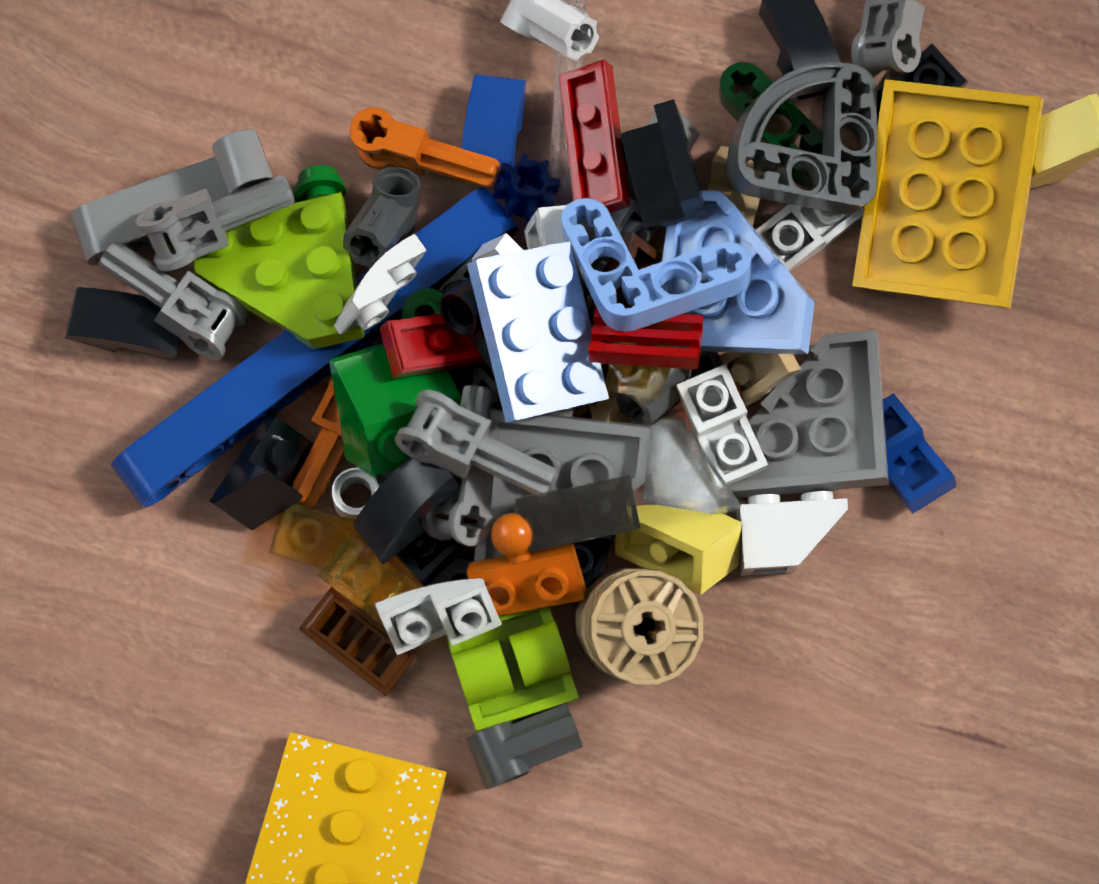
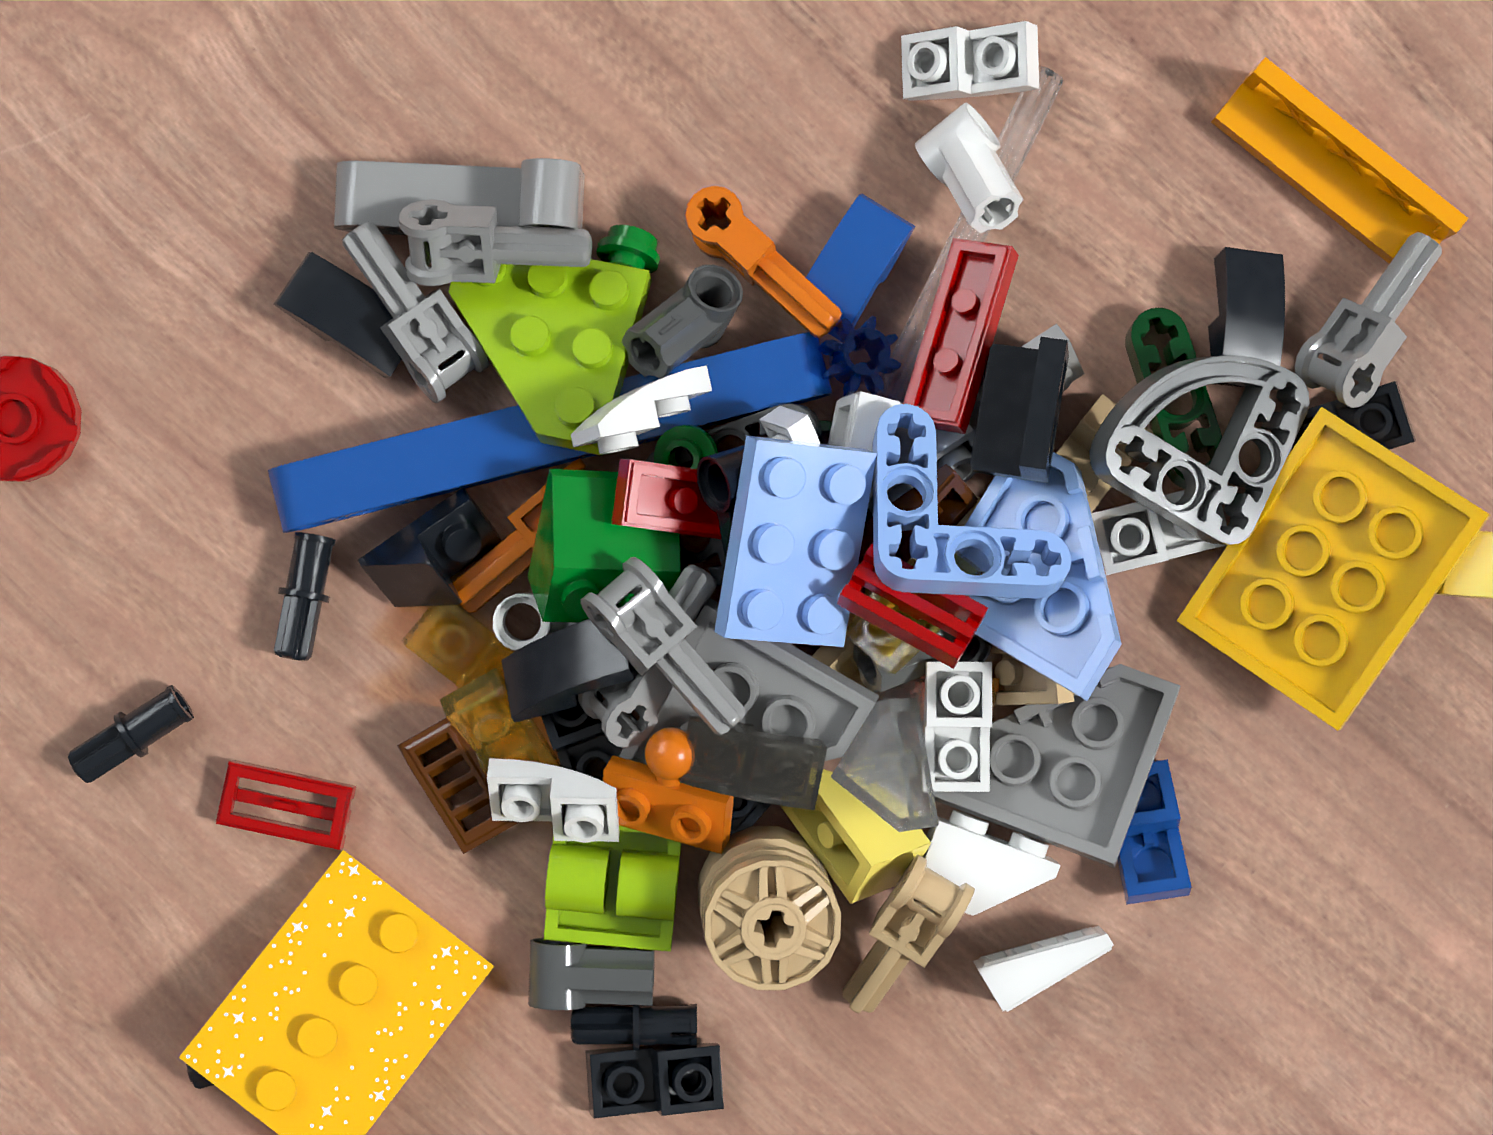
camera: 25 degrees right, 10 degrees up
(85, 716) = (130, 735): none -> black axle
(178, 549) = (303, 596): none -> black axle
(274, 710) = (338, 815): none -> red tile
(576, 770) = (635, 1025): none -> black axle
(610, 808) = (654, 1079): none -> black slope
(753, 594) = (907, 928): none -> tan connector
(856, 597) = (1033, 967): none -> white slope

